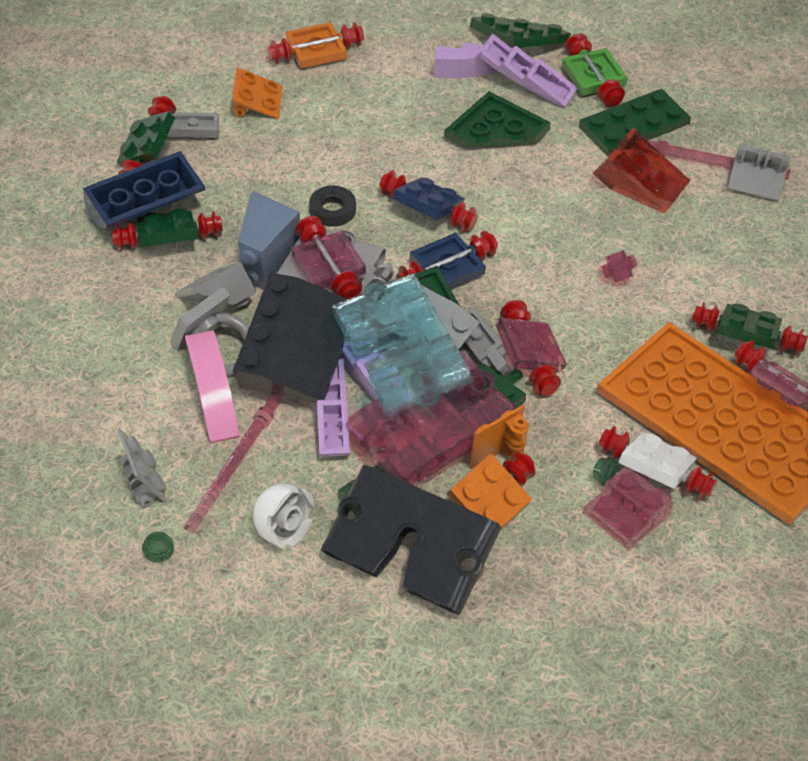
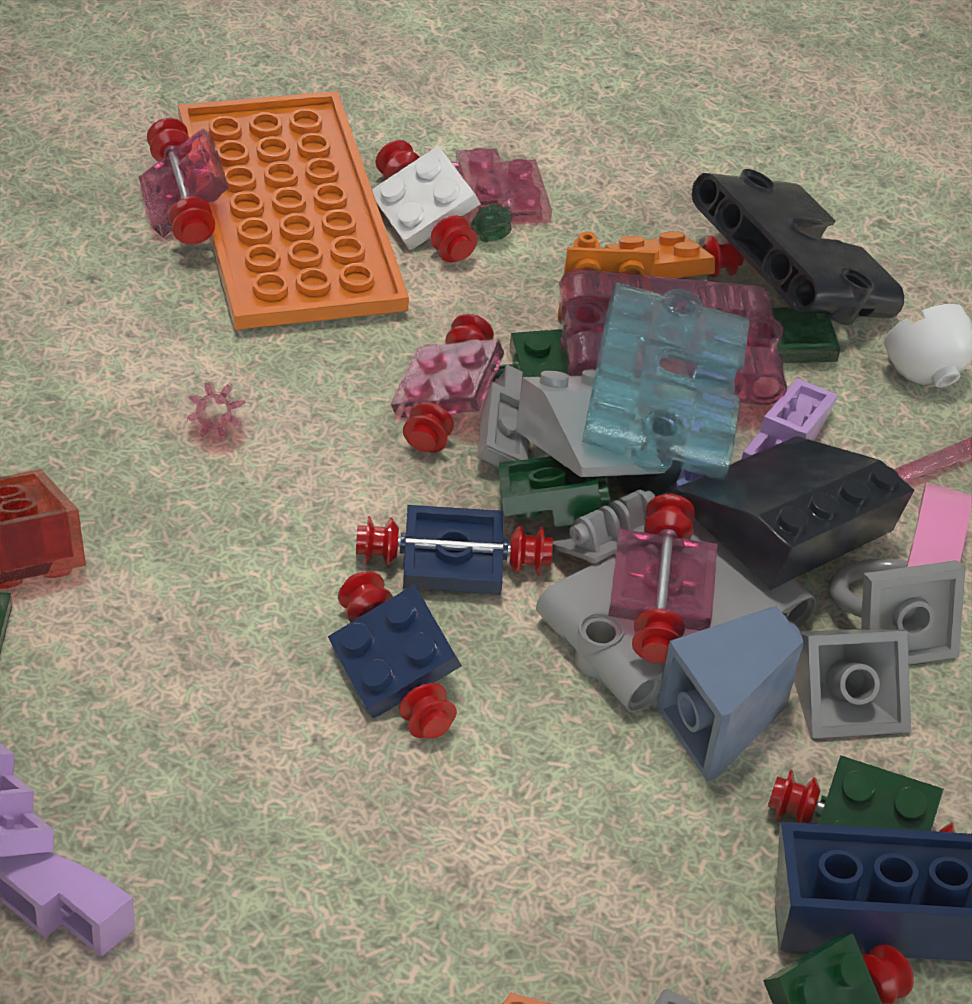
camera: 150 degrees left, 5 degrees down
(335, 193) = (548, 766): black tyre -> none
(496, 123) = (142, 741): dark green plate -> none
(749, 325) = (139, 265): dark green plate -> none

